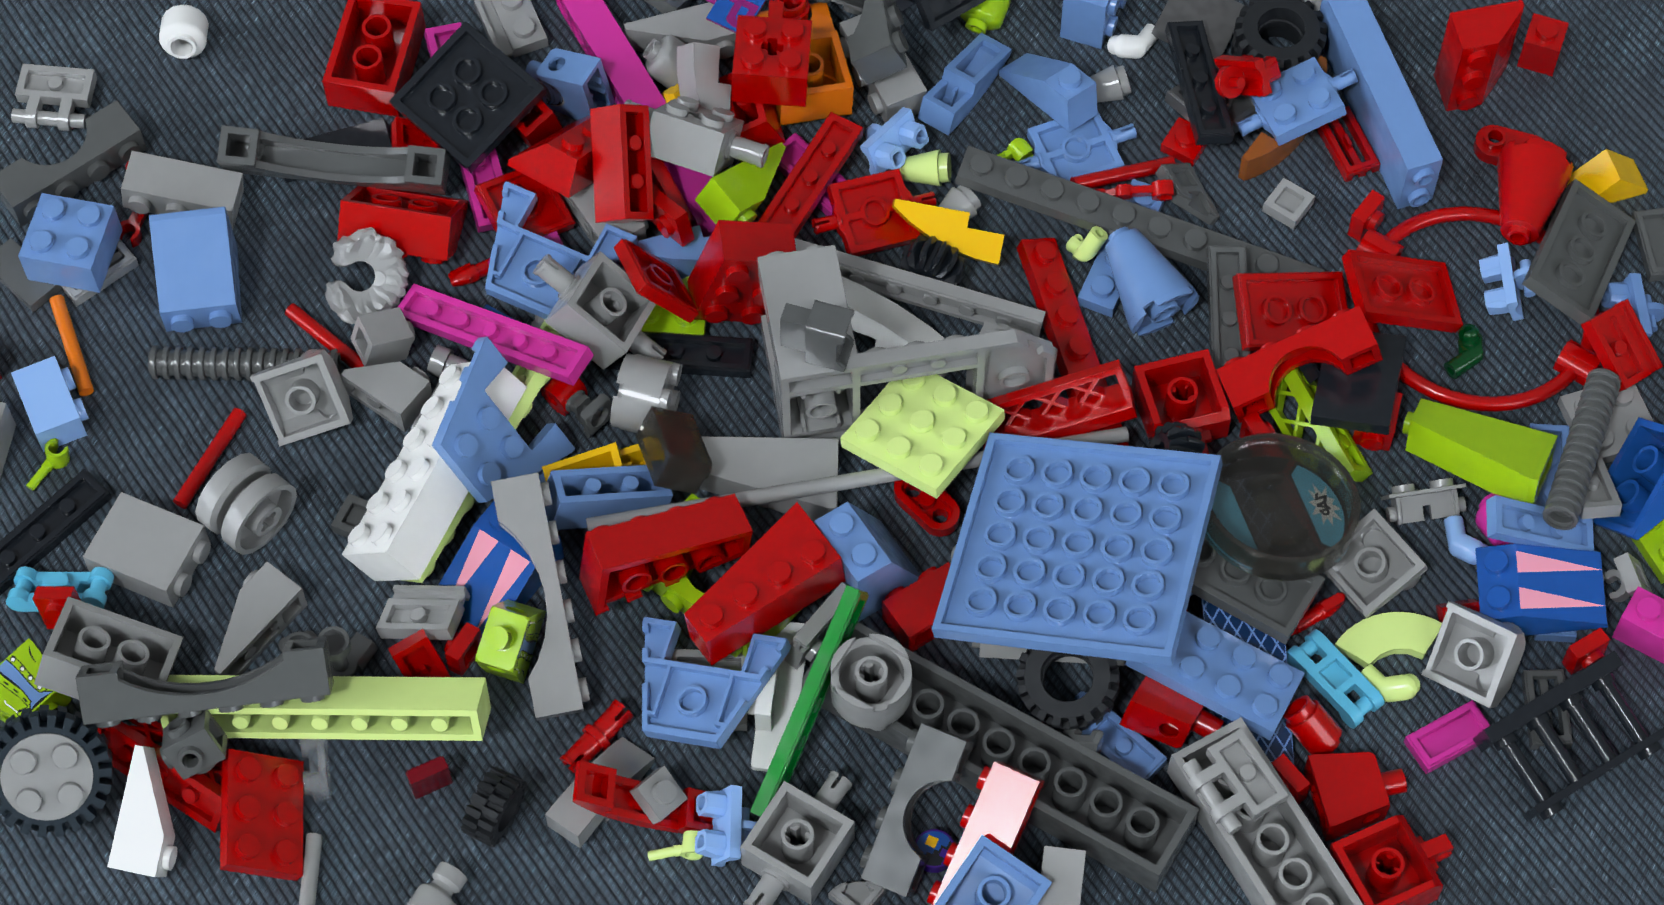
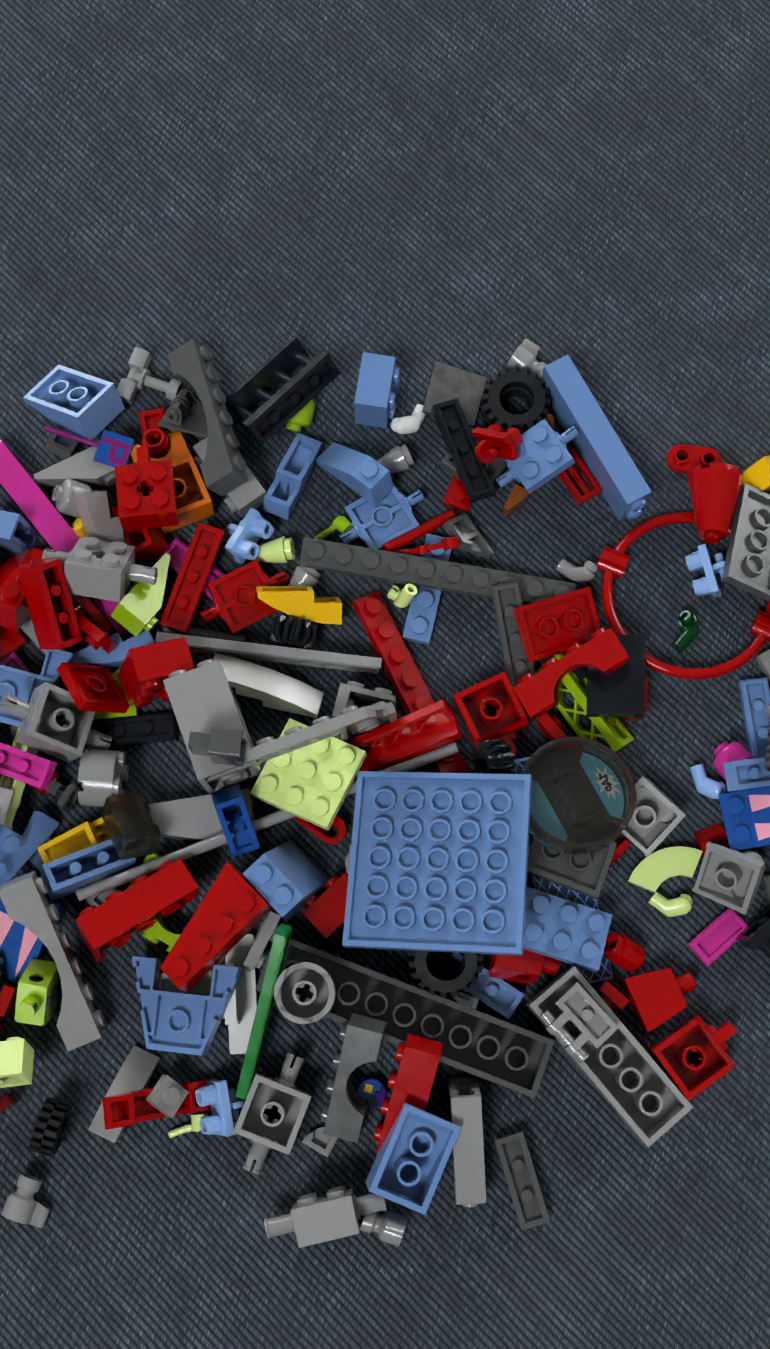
camera: 10 degrees left, 15 degrees up
(597, 736) = (115, 1051): red pin -> none
(815, 466) = (235, 820): none -> blue arch
(1147, 282) = (450, 620): medium blue cone -> none
(1288, 203) = (542, 534): light grey plate -> none
(1324, 258) = (575, 573): none -> light grey arm
(1335, 678) = (632, 907): medium azure plate -> none
(1367, 216) = (601, 535): red plate -> none
(1402, 290) = (634, 595): red plate -> none
(1408, 503) = (663, 756): light grey hinge -> none
(1475, 53) = (659, 395): red slope -> none
(1481, 449) = (712, 714): lime slope -> none
(1542, 44) = (705, 374): red brick -> none

